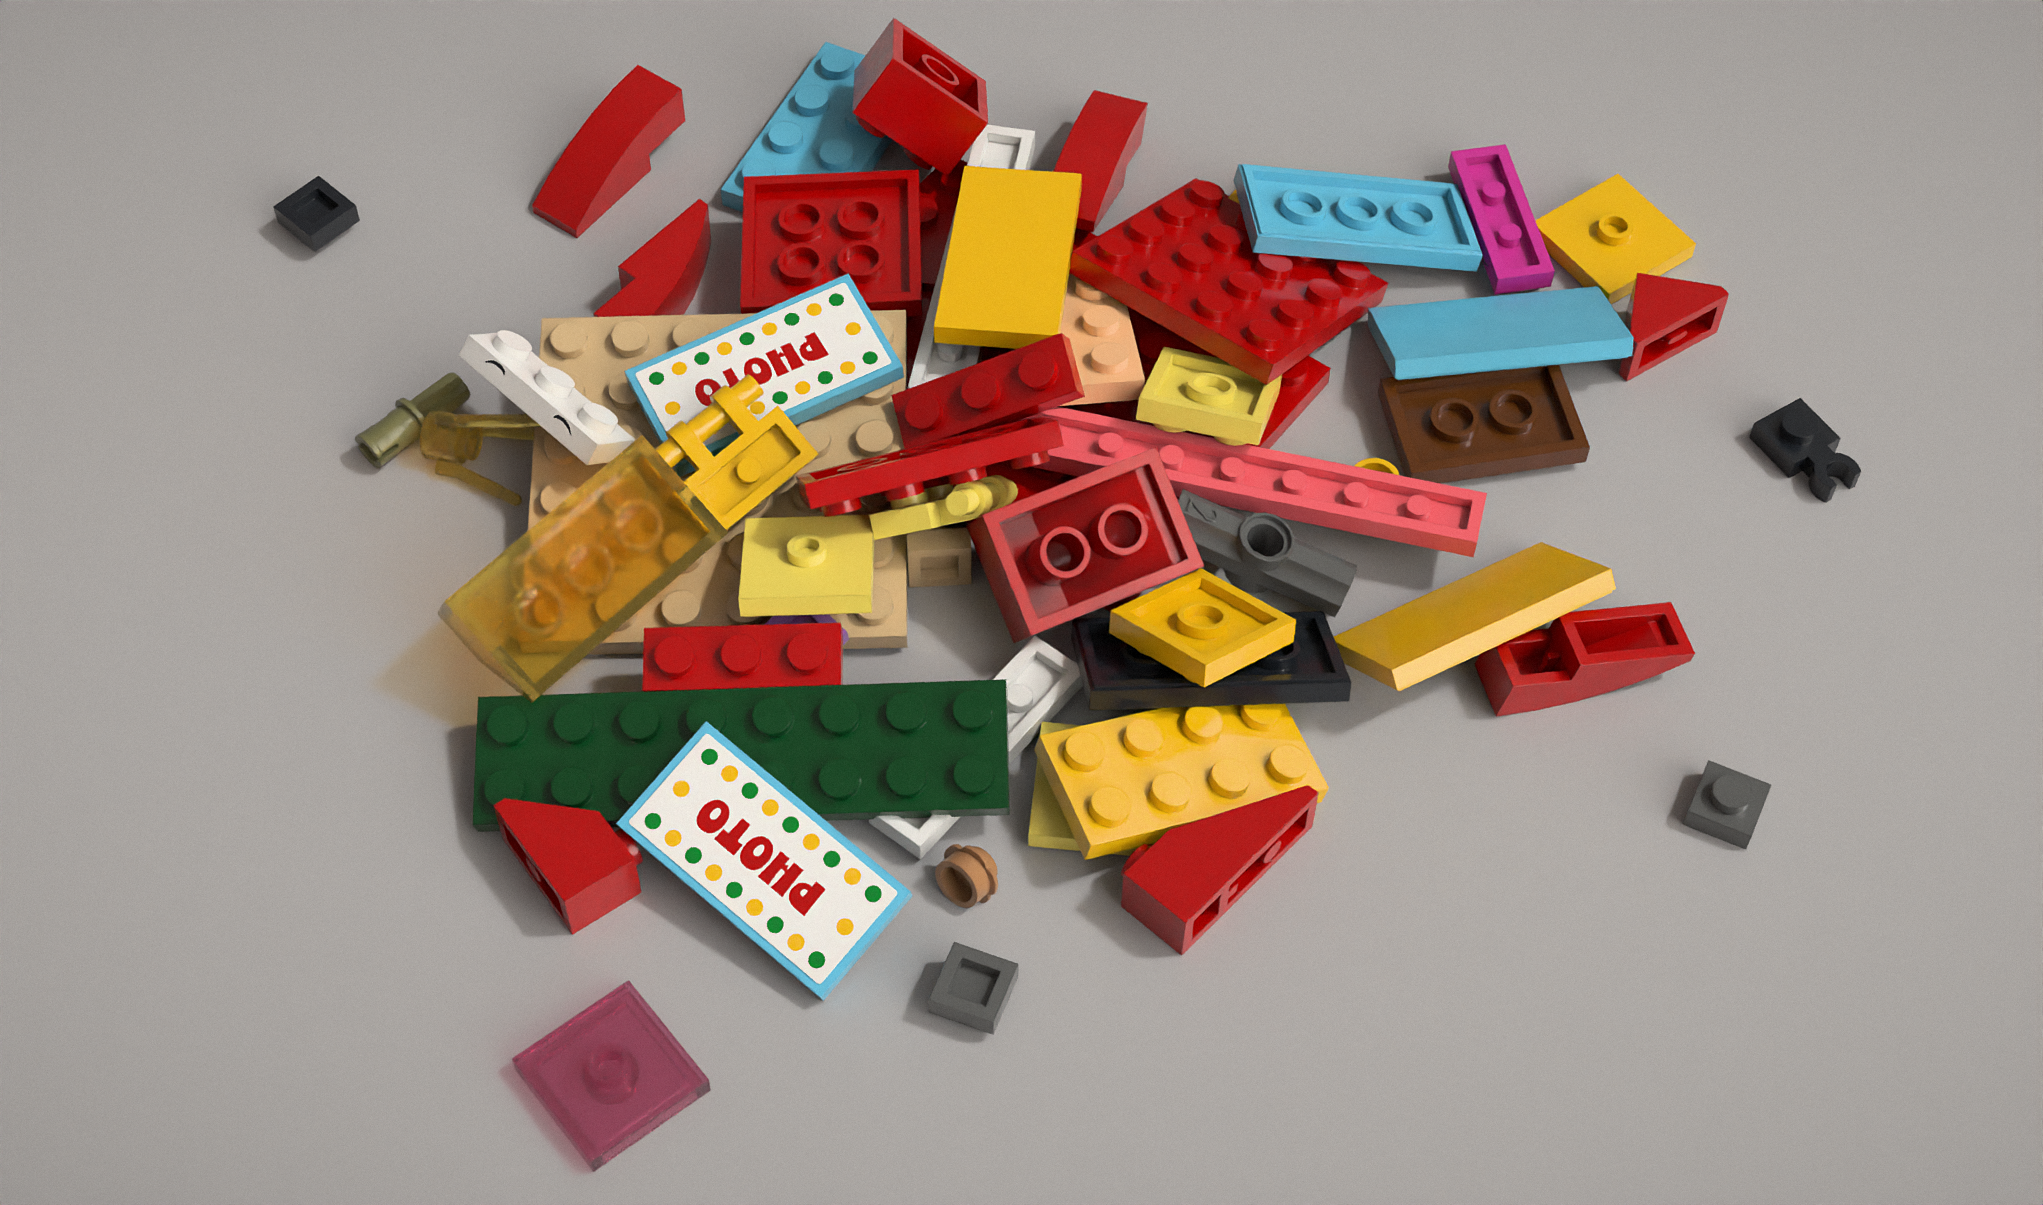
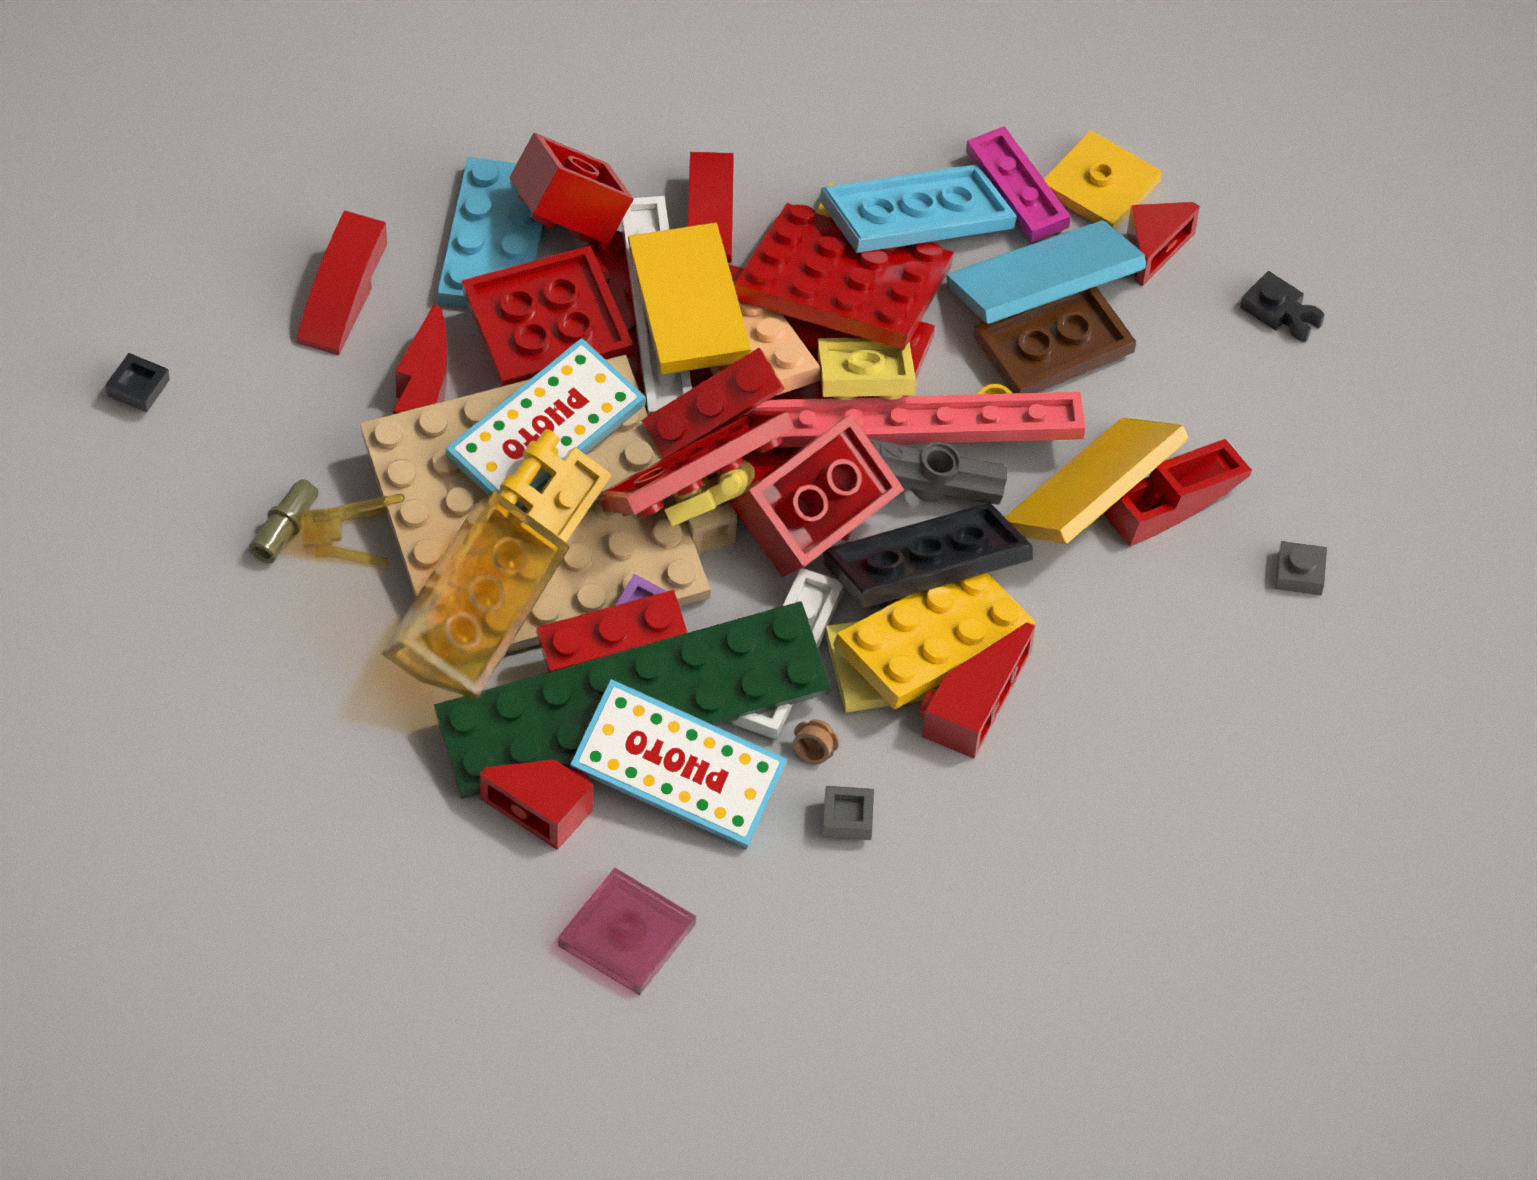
camera: 20 degrees left, 0 degrees up
(546, 396) = (398, 478): white plate -> none
(807, 566) = (633, 556): light yellow plate -> none
(1202, 627) = (920, 532): yellow plate -> none

